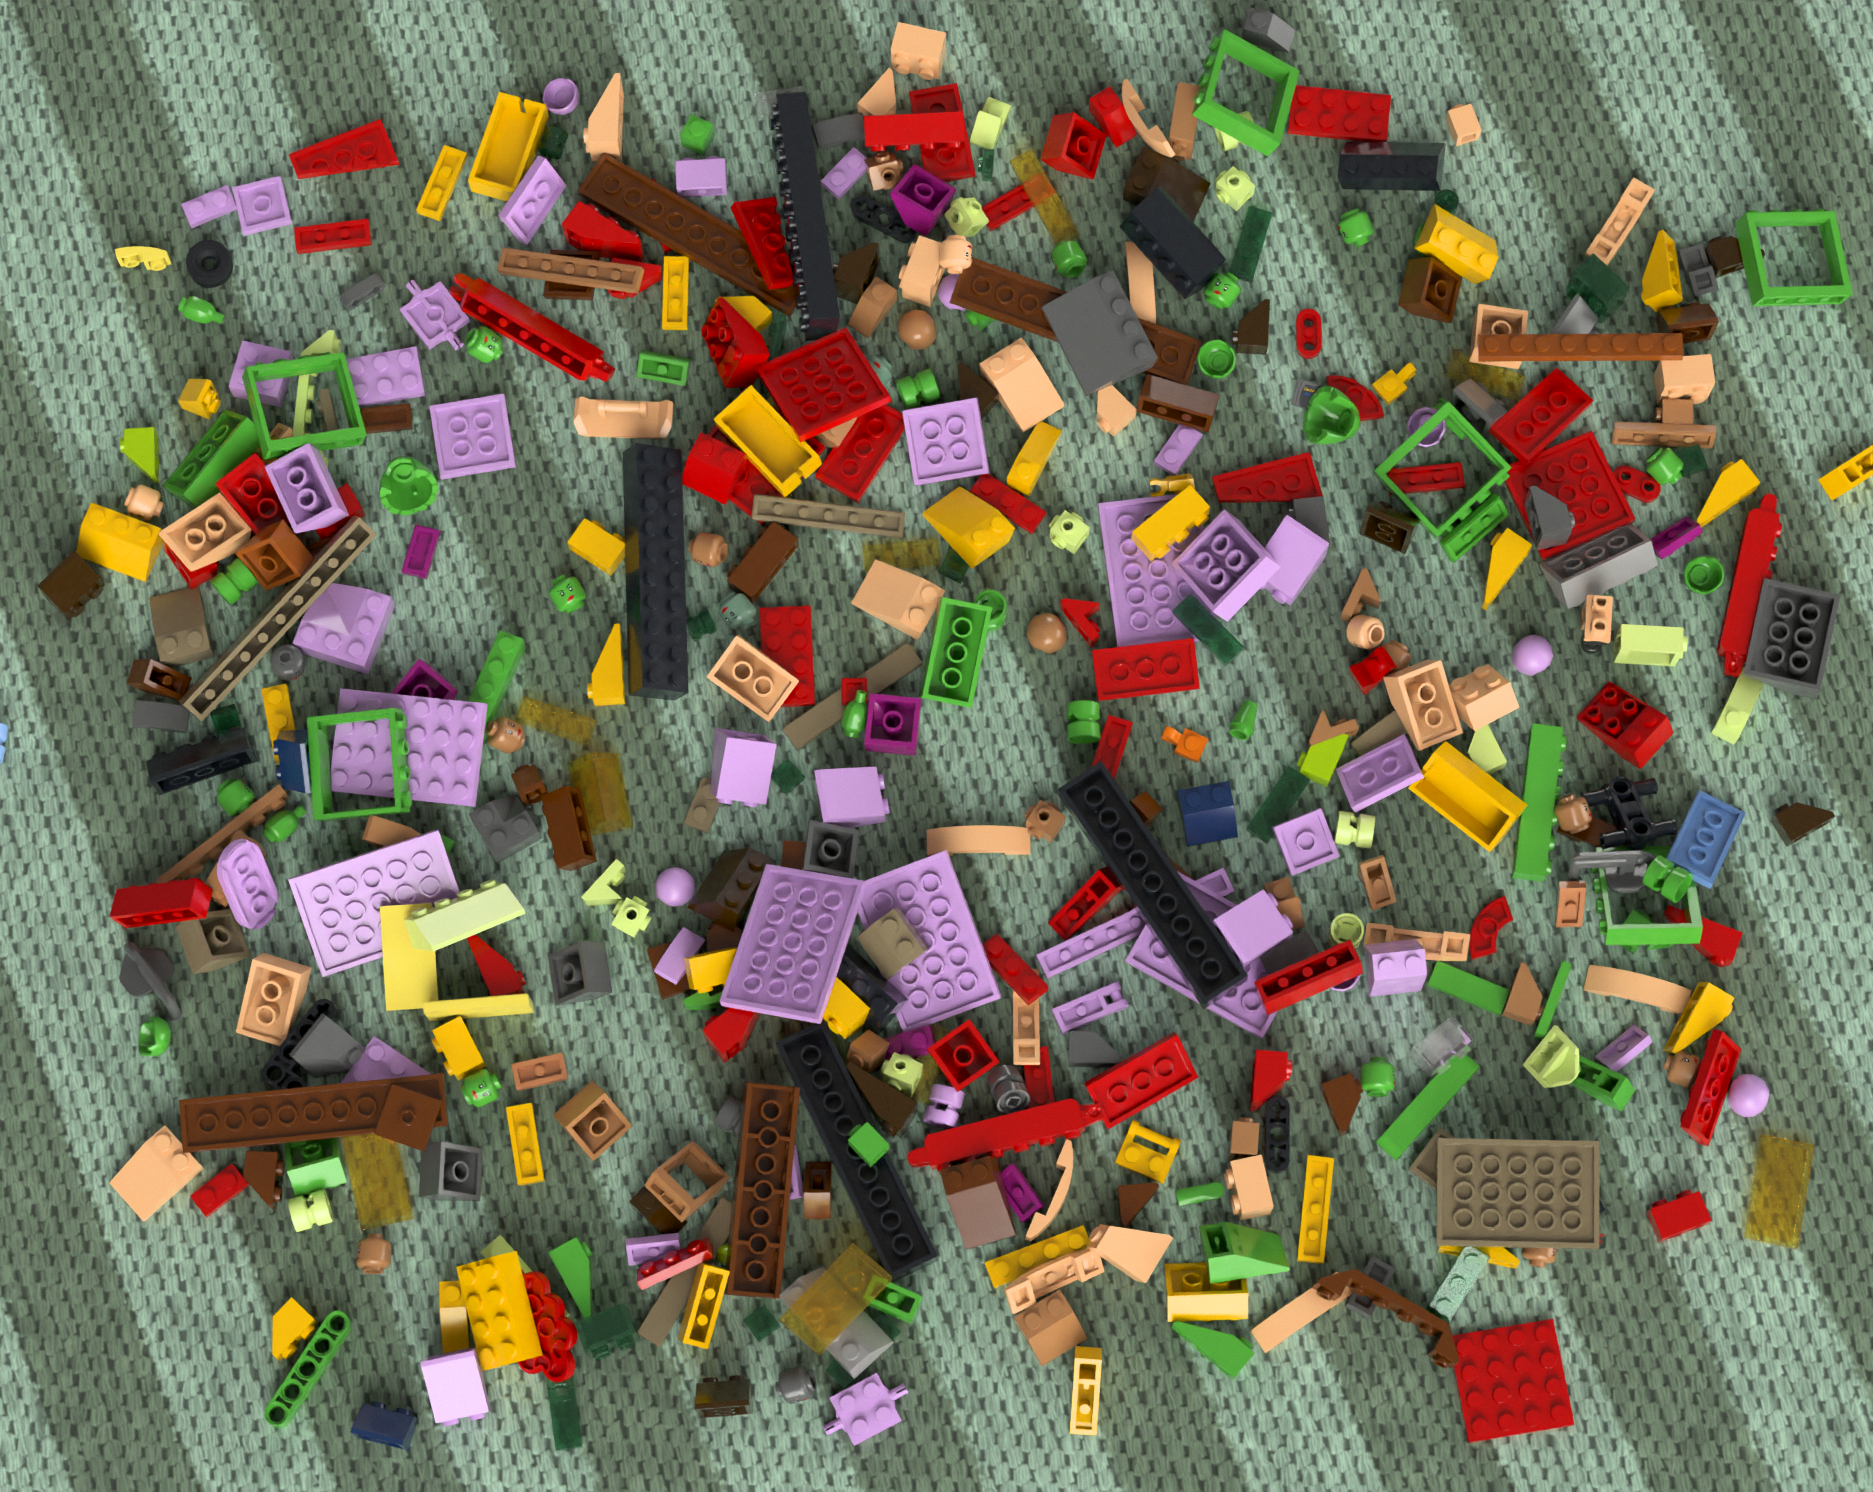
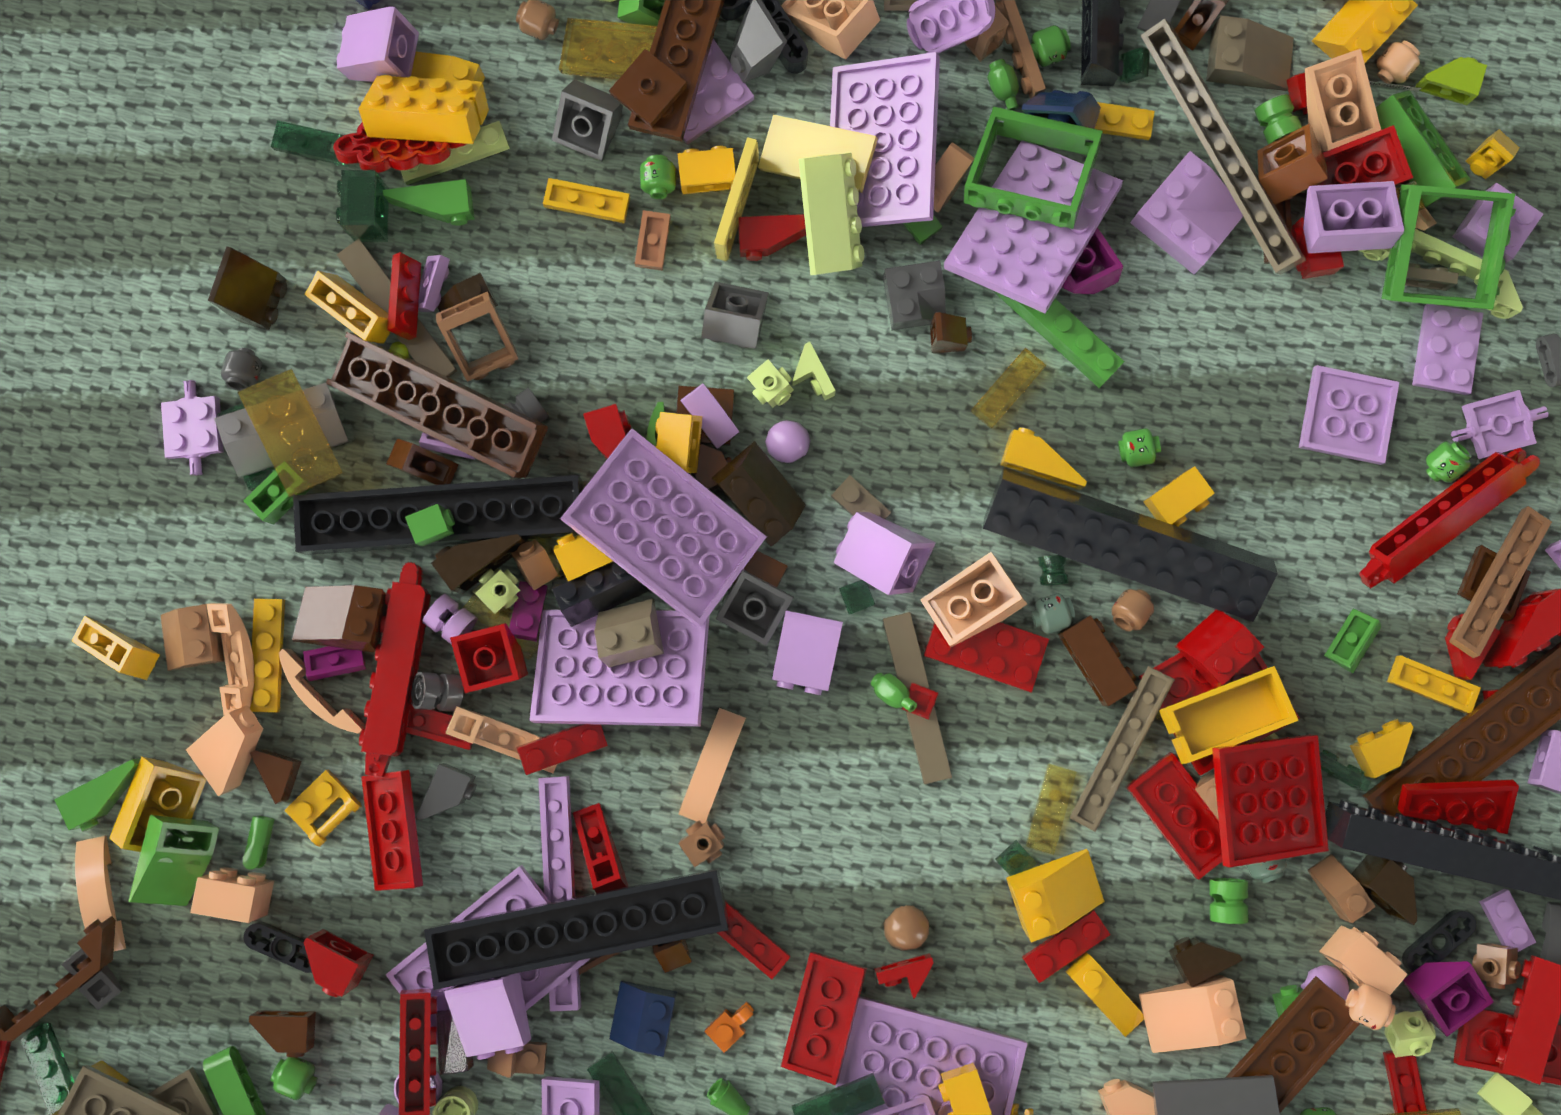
camera: 110 degrees right, 10 degrees up
(288, 662) = (1172, 143): dark grey head -> none
(387, 418) = (1400, 336): reddish brown tile -> none
(407, 486) = (1318, 325): bright green hair -> none
(421, 551) = (1241, 318): magenta plate -> none
(505, 735) = (1011, 330): medium nougat head -> none
(568, 828) = (888, 356): reddish brown brick -> none
(592, 1120) = (582, 271): medium nougat slope -> none
(602, 791) = (913, 404): clear yellow slope -> none
(623, 418) = (1311, 576): light nougat piece -> none
(733, 345) = (1351, 722): red slope -> none
(761, 1323) = (316, 360): clear green plate -> none
(892, 724) = (867, 726): magenta slope -> none
(898, 598) = (1002, 787): light nougat slope -> none
(917, 329) = (1298, 927): medium nougat hair -> none
(946, 441) = (1157, 907): lavender plate -> none
(955, 652) = (918, 822): bright green slope -> none
(985, 165) = (1463, 1080): clear green plate -> none
(996, 600) = (952, 878): bright green wheel -> none
(1068, 531) = (1001, 989): yellowish green brick -> none
(1083, 723) = (792, 927): bright green wheel -> none
(1089, 1008) = (491, 808): lavender plate -> none
(1243, 1139) = (282, 909): medium nougat brick -> none
(1315, 1209) = (191, 953): yellow plate -> none

